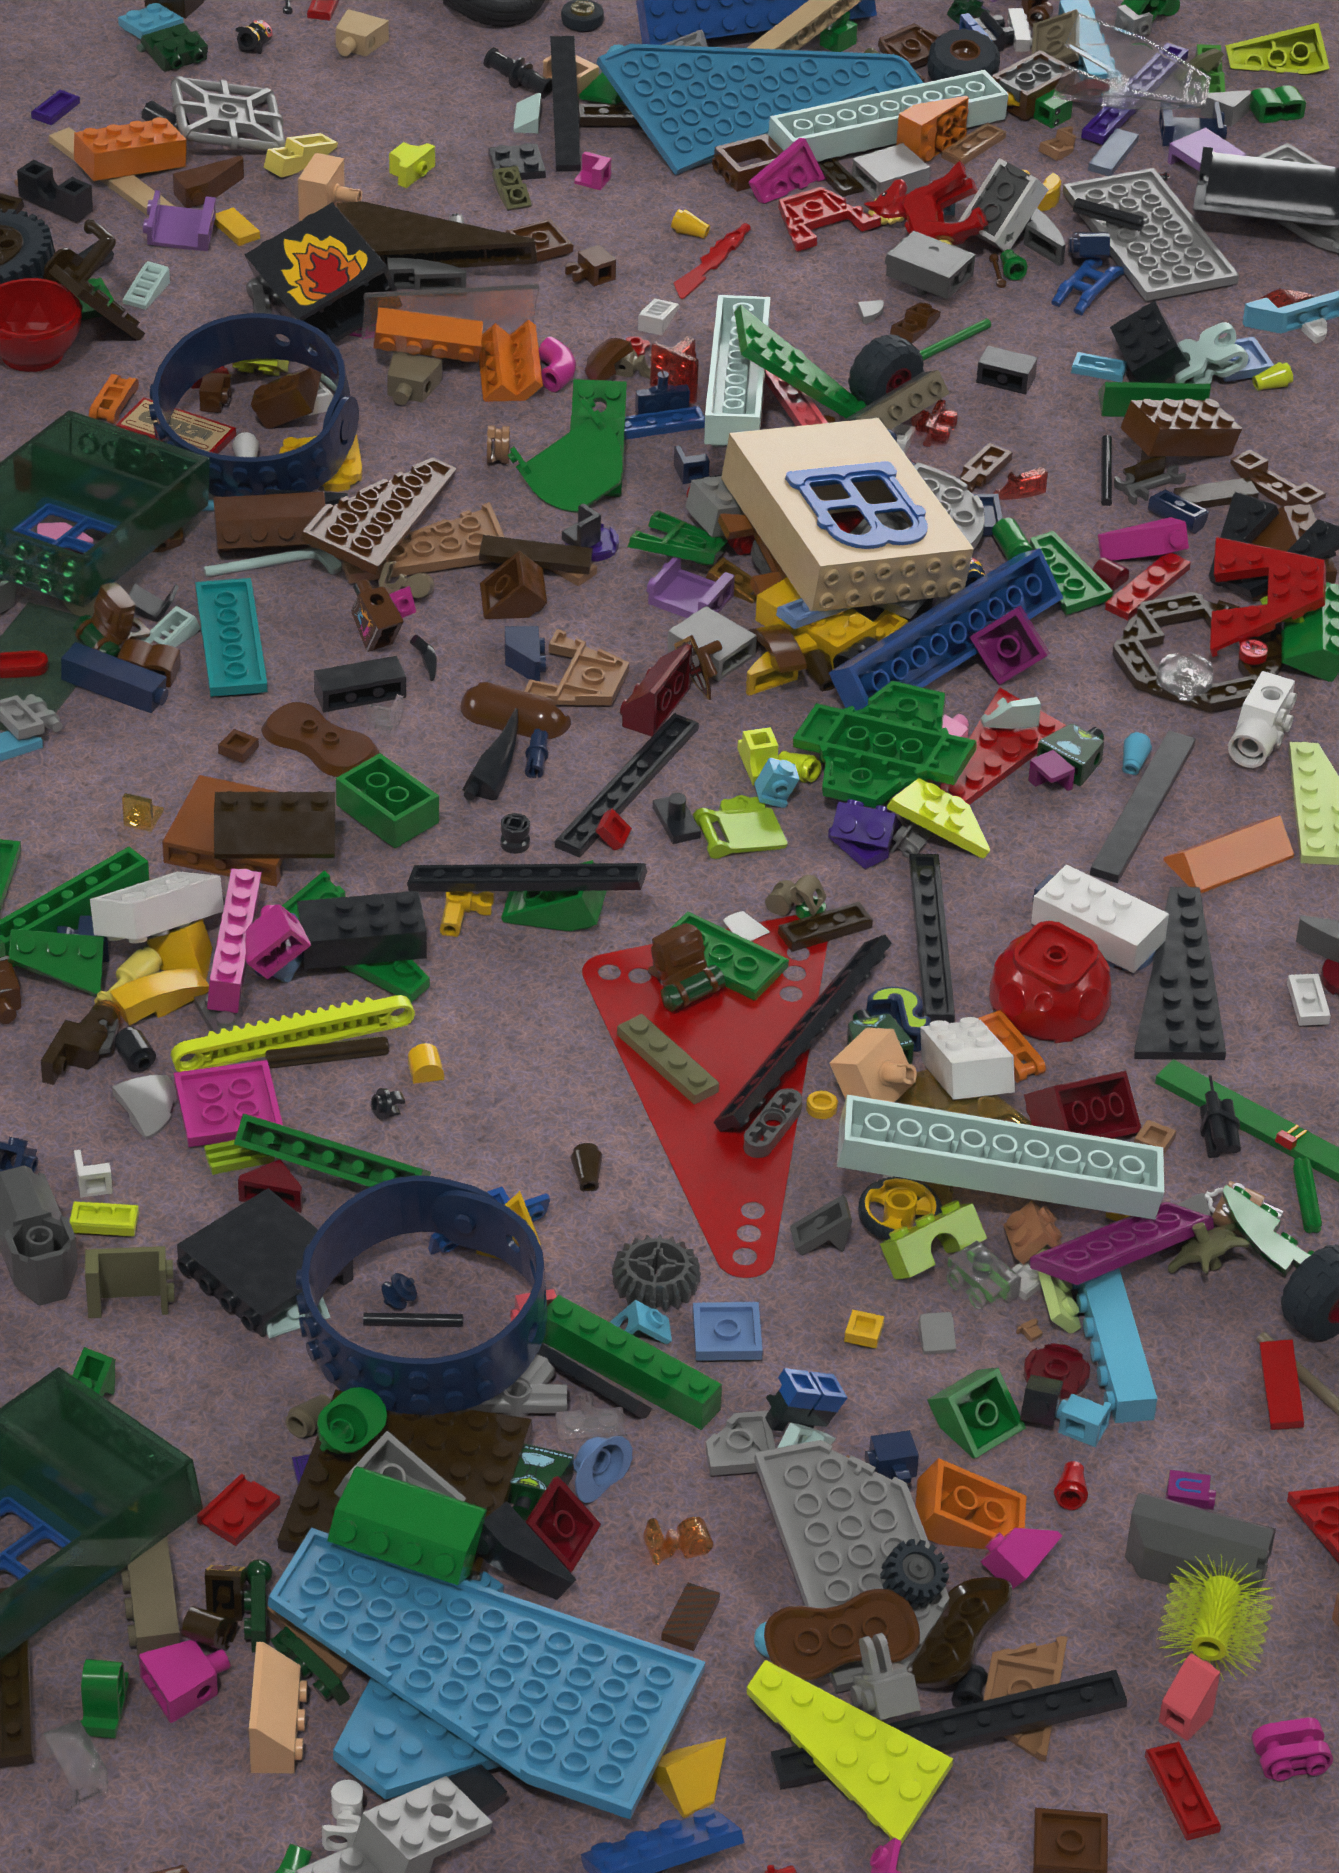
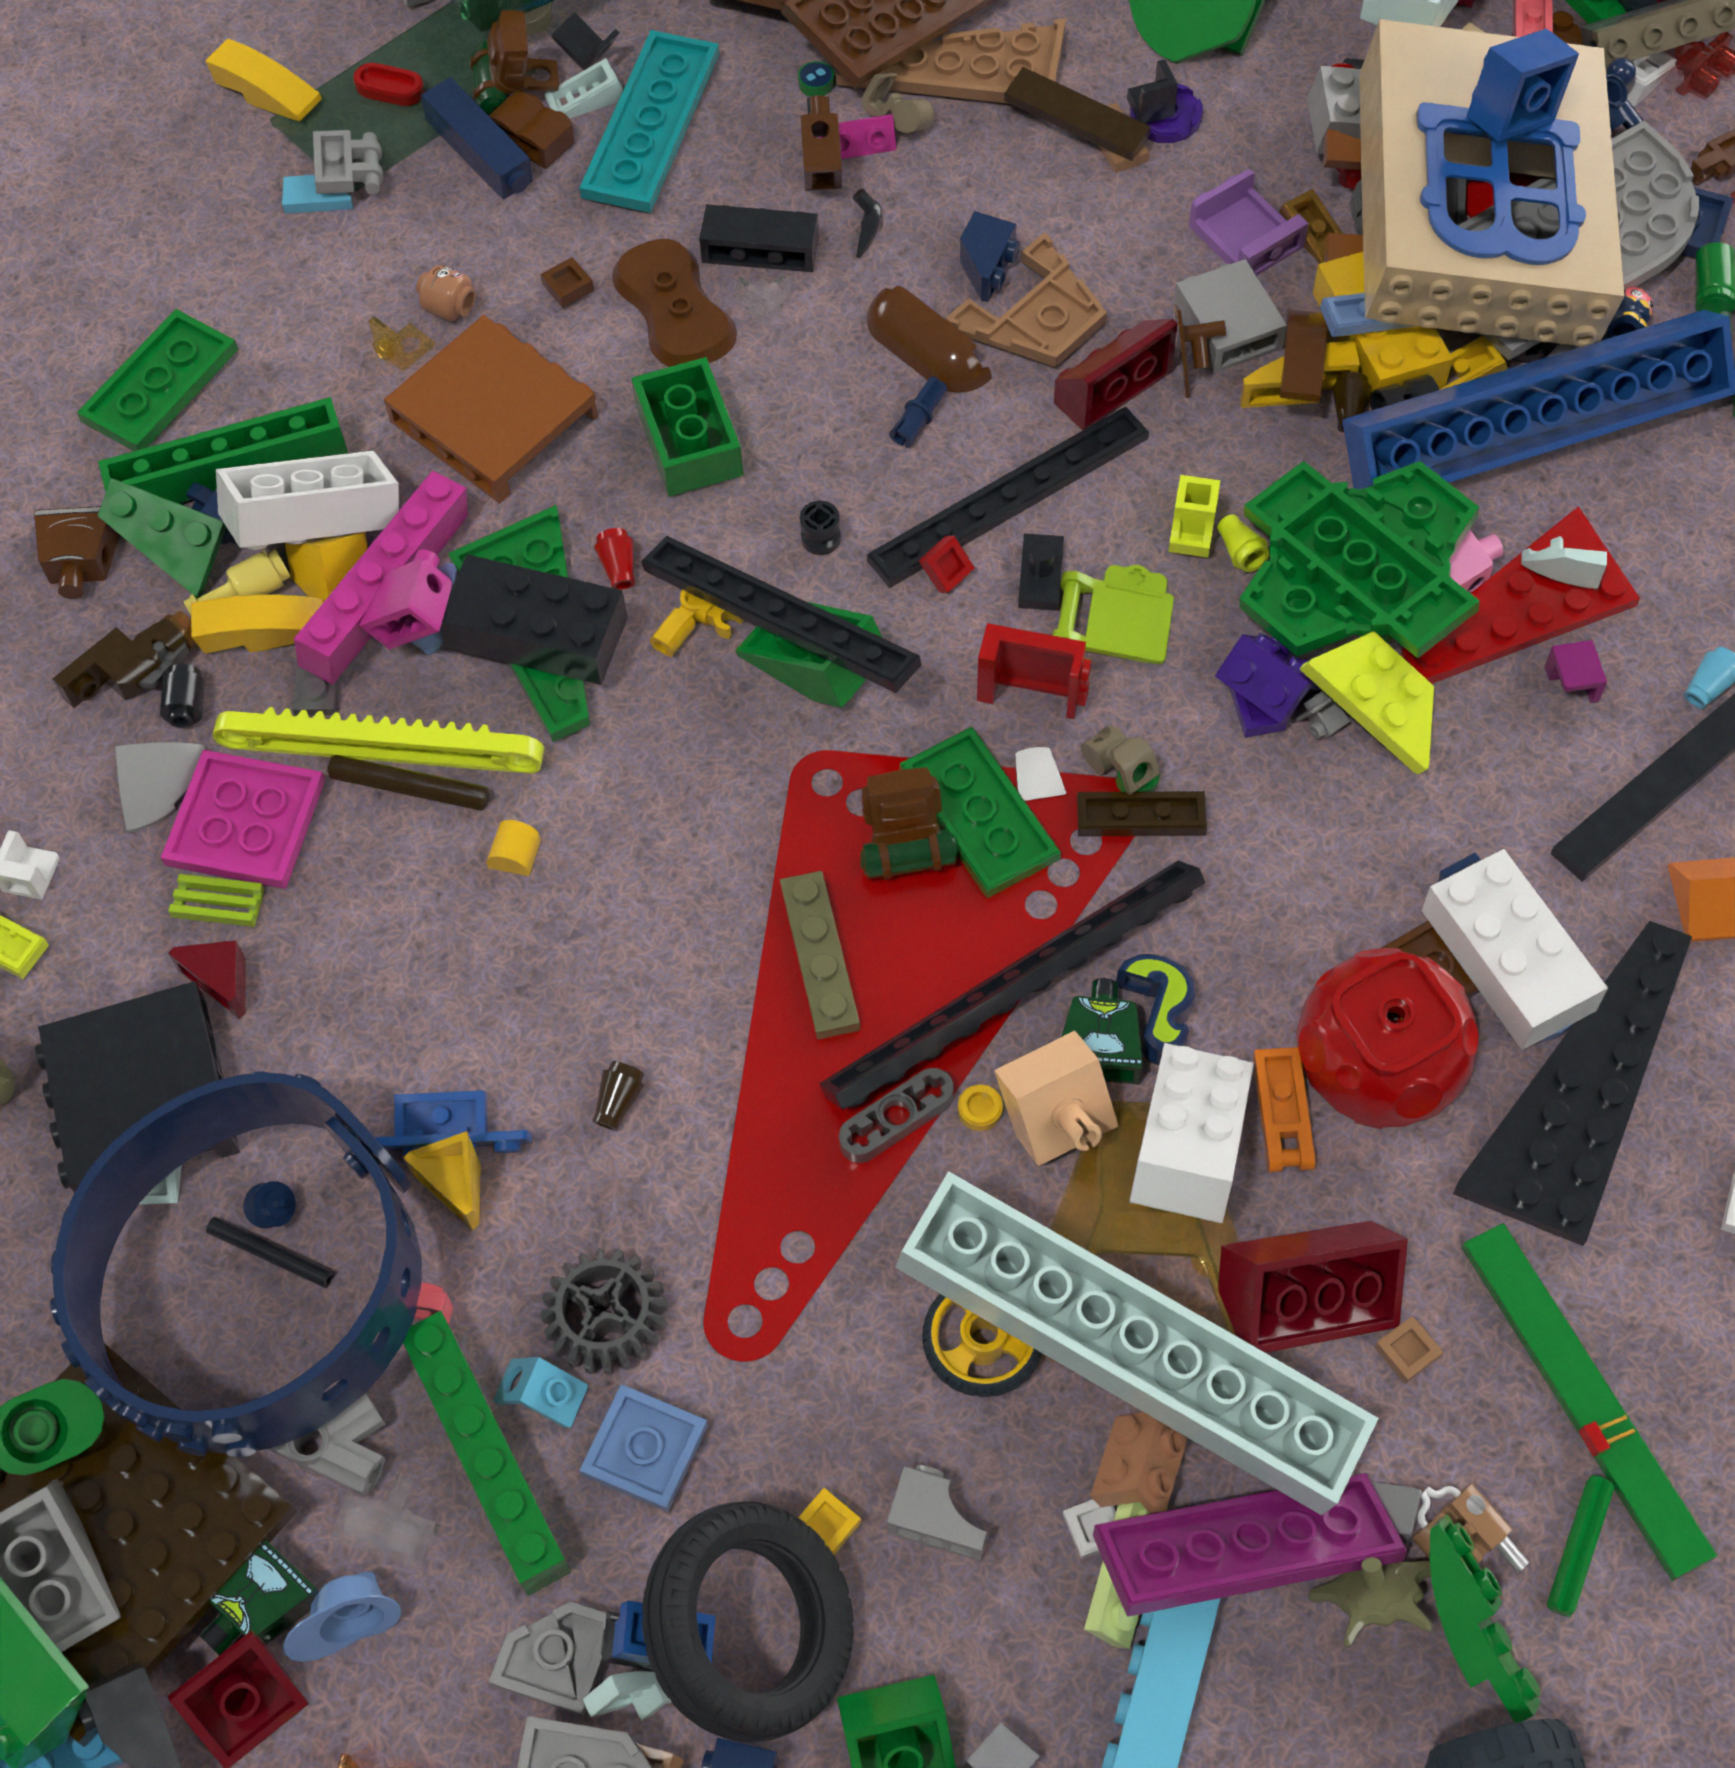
camera: 30 degrees right, 20 degrees up
(157, 773) = (446, 293): none -> nougat head
(274, 825) = (514, 426): dark brown slope -> none
(306, 1416) = (42, 1362): dark tan cone -> none
(320, 1153) = (301, 963): green brick -> none
(329, 561) = (737, 21): light aqua piece -> none
(332, 583) = (816, 79): none -> tile
(381, 882) = (616, 556): none -> red cone
(384, 1103) = (431, 895): black plate -> none
(493, 765) = (850, 415): black piece -> none
(514, 589) = (1025, 157): reddish brown slope -> none
(594, 1381) = (424, 1458): black tile -> none
(682, 540) = (1278, 155): green wing -> none
(690, 467) = (1349, 40): dark blue panel -> none
(712, 861) = (1033, 663): none -> red panel
(776, 782) = (1192, 564): medium azure brick -> none
(826, 1223) = (856, 1328): dark grey slope -> none
(839, 1383) = (674, 1637): none -> black tyre
(849, 442) = (1522, 84): none -> blue brick
(910, 1249) = (956, 1414): lime arch -> none
(921, 1295) = (927, 1516): none -> light grey arch
(931, 937) = (1273, 886): black tile -> none
(937, 1333) = (922, 1575): light grey slope -> none
(983, 1277) = (1032, 1507): clear piece -> none
(1009, 645) = (1621, 448): magenta slope -> none
(1030, 1330) = (1058, 1620): medium nougat piece -> none
(1047, 1362) = (1057, 1728): dark red tile -> none
(1078, 747) = (1628, 645): torso -> none
(1219, 1124) = (1510, 1370): black piece -> none

